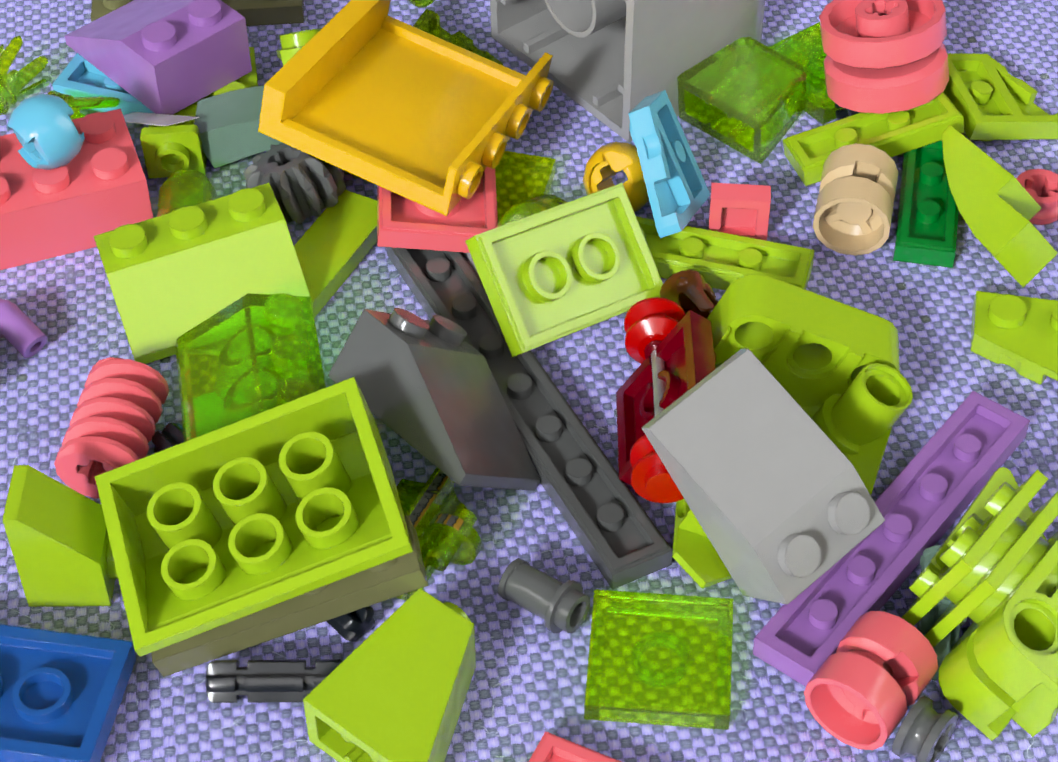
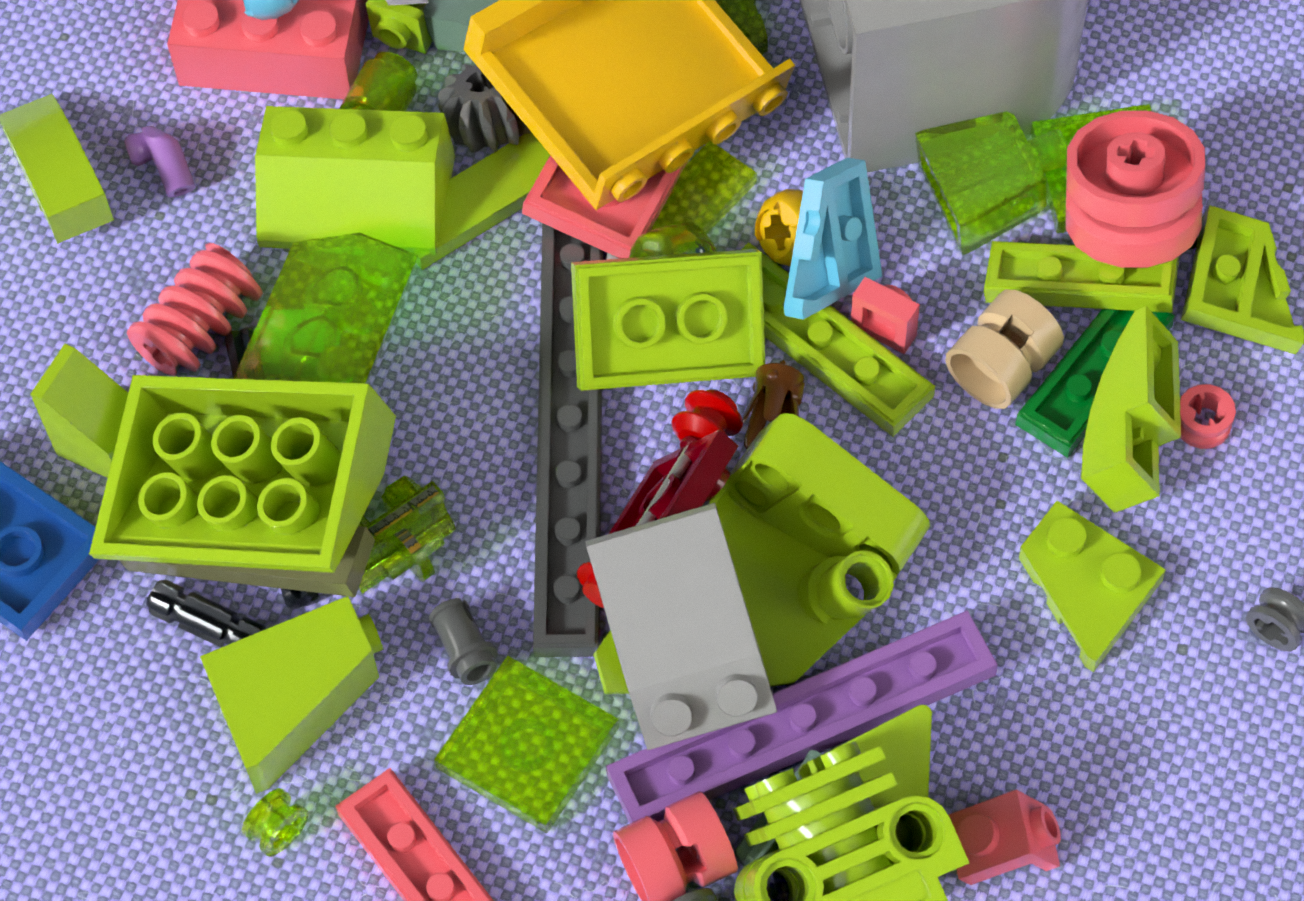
camera: 30 degrees right, 15 degrees up
(437, 397) = (468, 416): dark grey slope -> none

